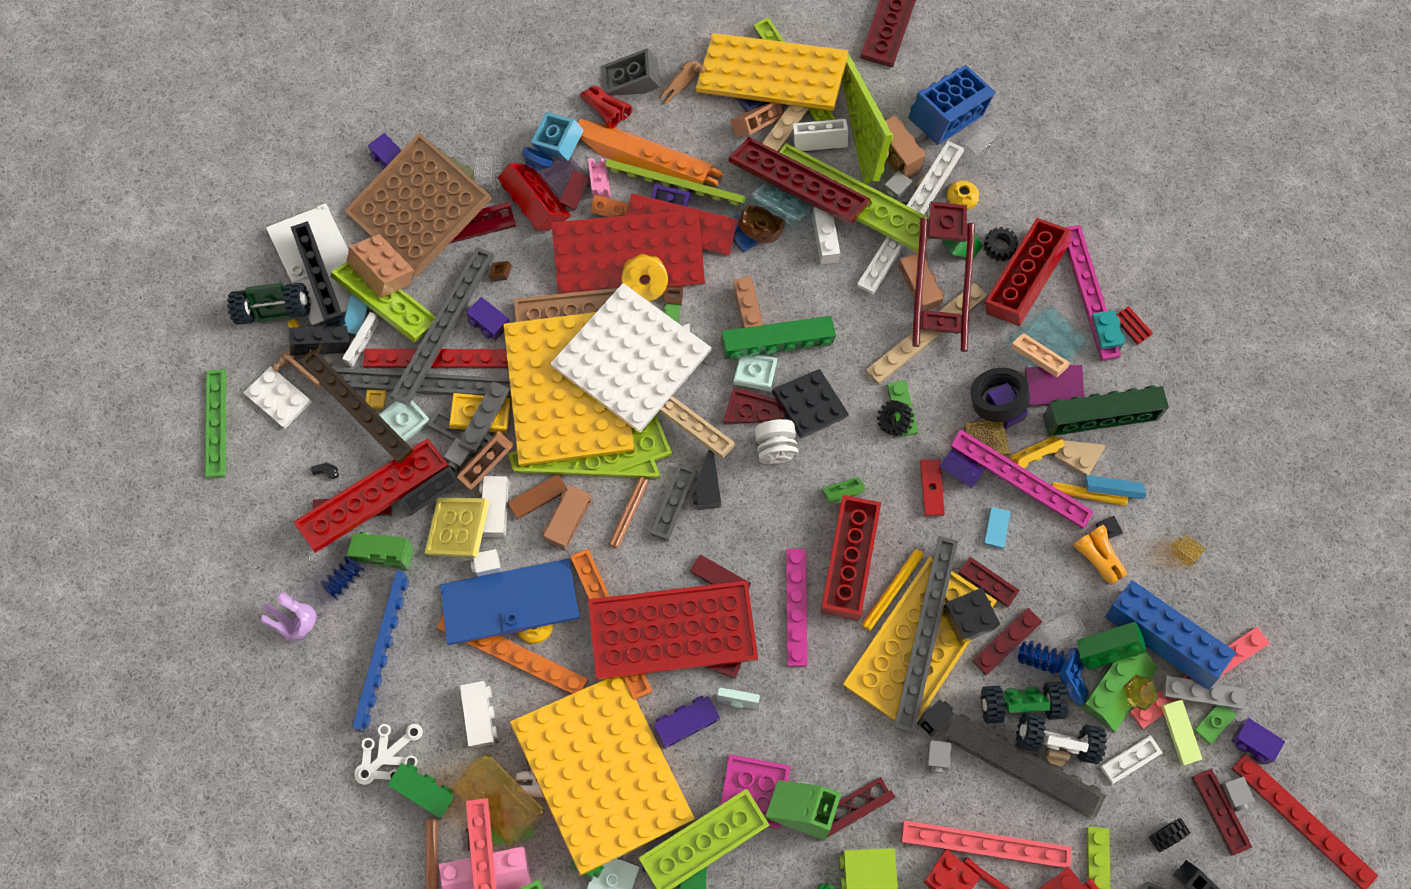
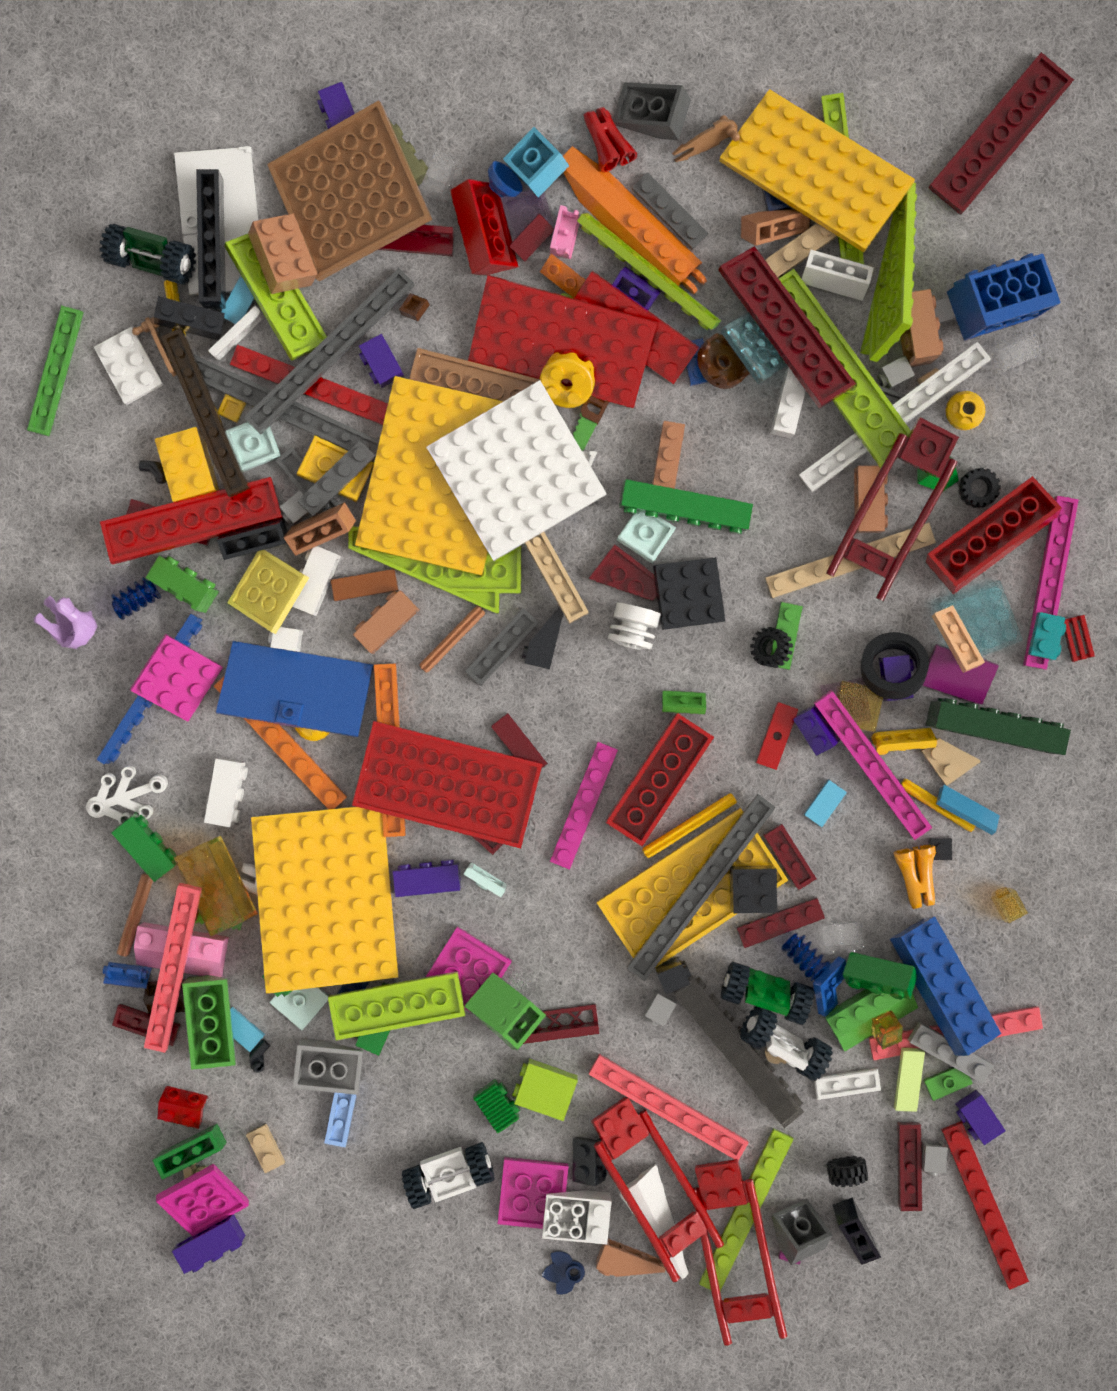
camera: 20 degrees right, 20 degrees up
(352, 452) = (186, 464): none -> yellow brick
(401, 630) = (176, 677): none -> dark pink plate
(673, 137) = (670, 211): none -> dark grey plate

